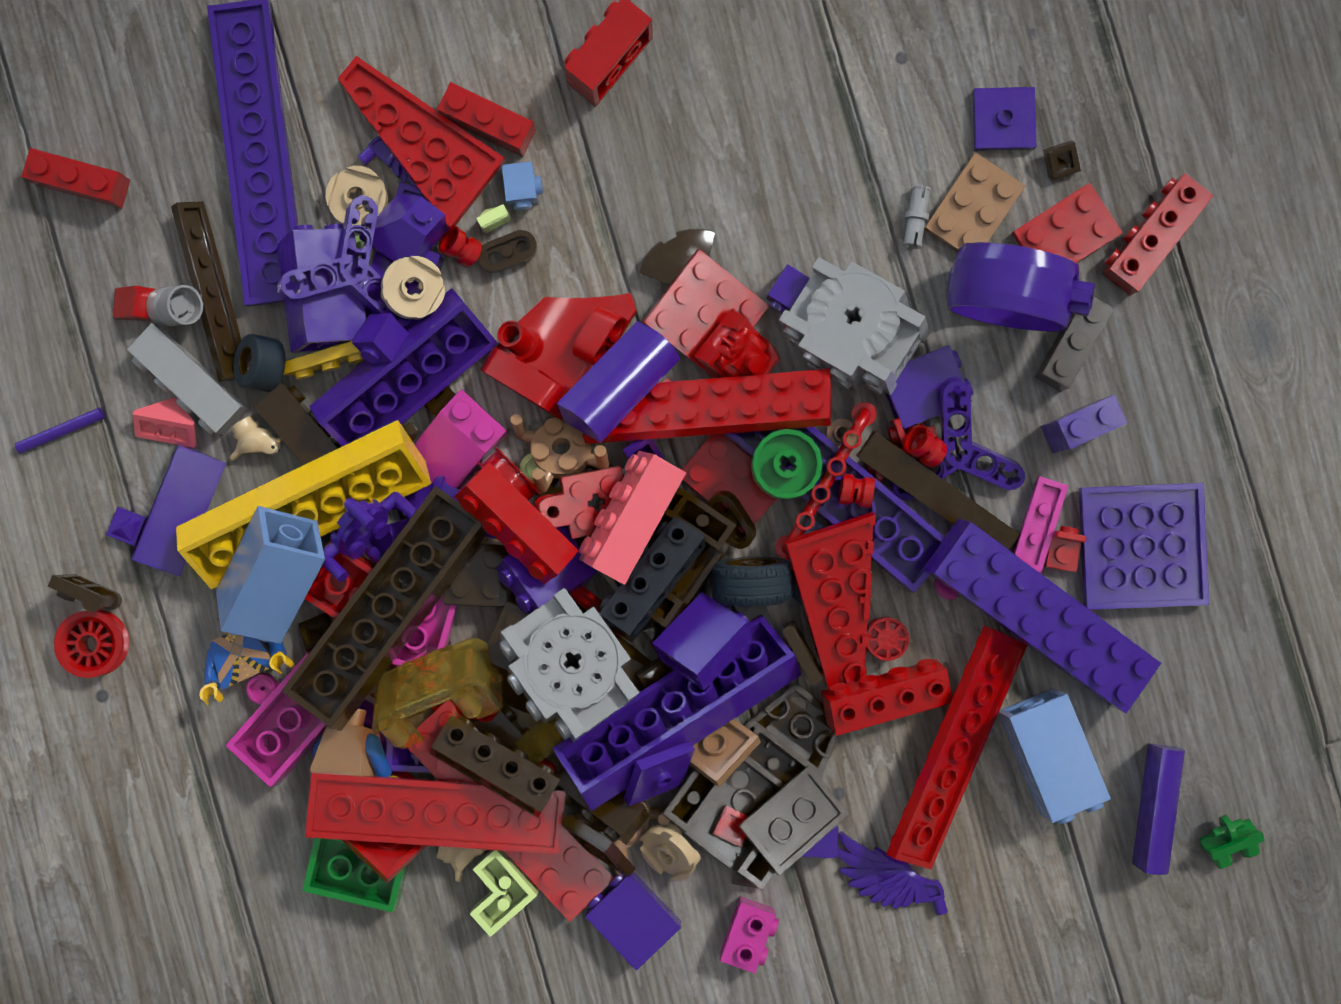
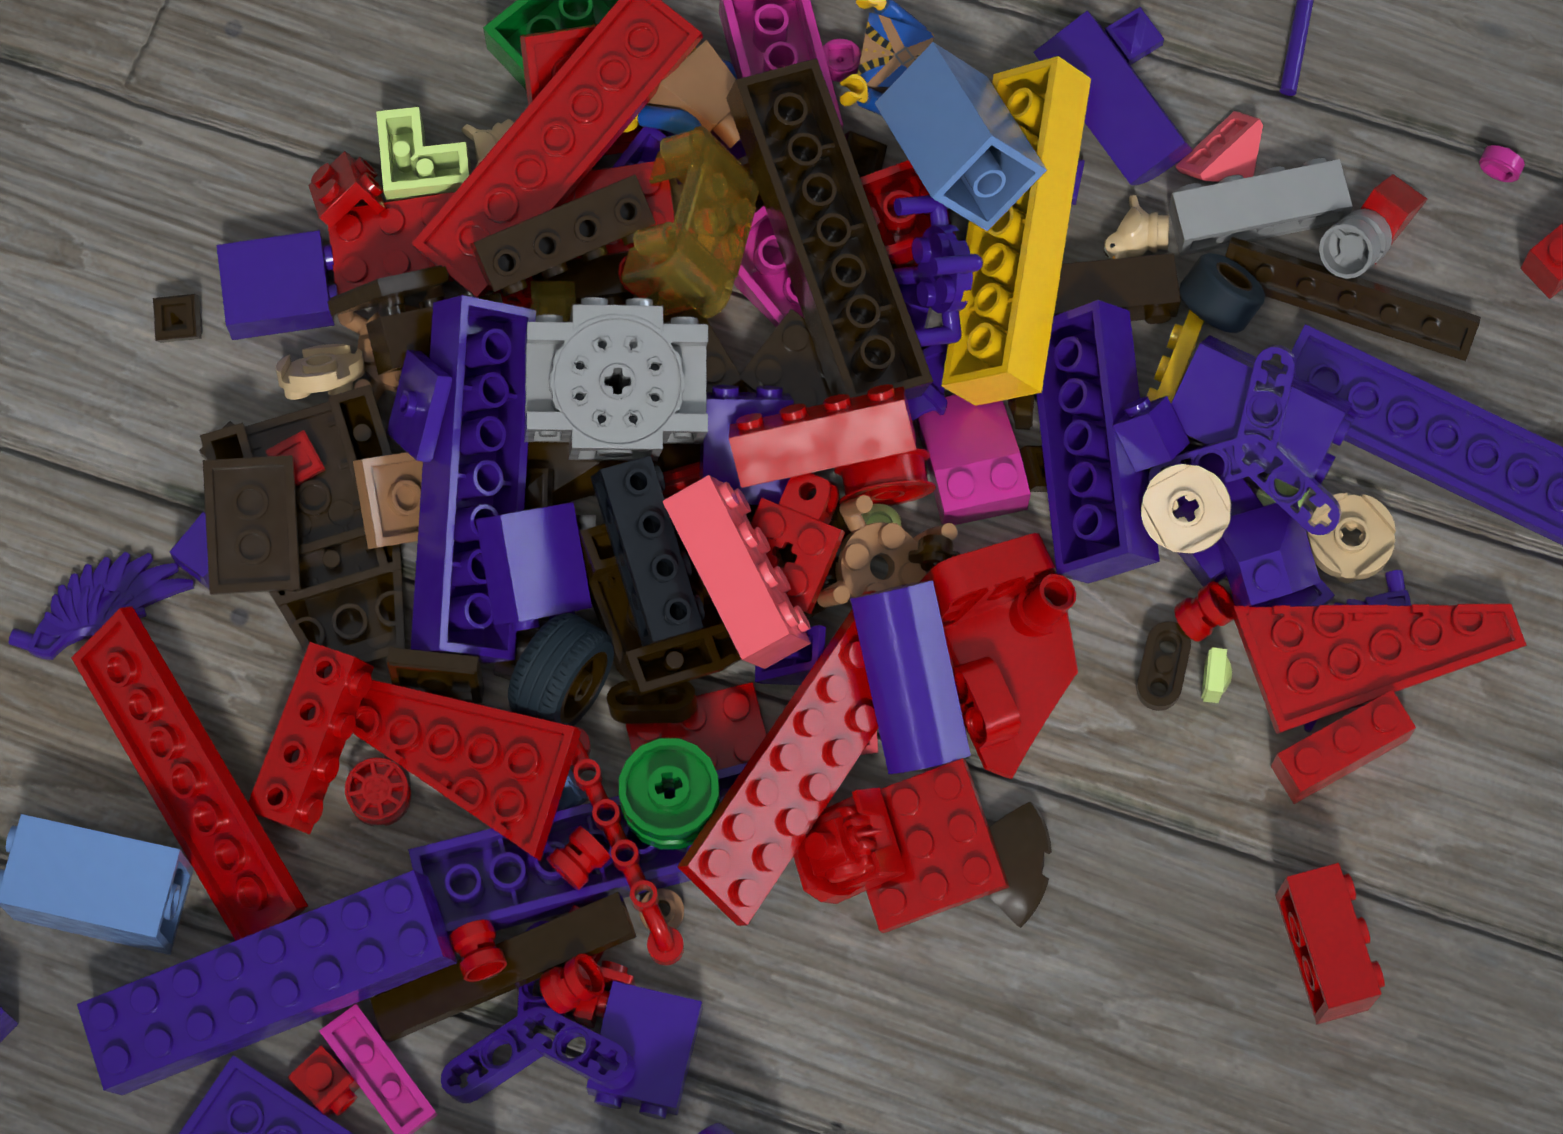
camera: 125 degrees right, 15 degrees down
(63, 257) = (1501, 163): none -> dark pink tile
(521, 185) = (1233, 734): medium blue brick -> none
(534, 419) = (932, 551): none -> dark brown plate
(549, 922) = (342, 185): none -> red bracket
(692, 961) = (177, 318): none -> dark brown tile
(748, 935) = (159, 397): dark pink brick -> none
(786, 289) = (881, 965): dark purple brick -> none
(854, 326) = (778, 998): light grey piece -> none
(942, 519) = (477, 950): none -> red wheel

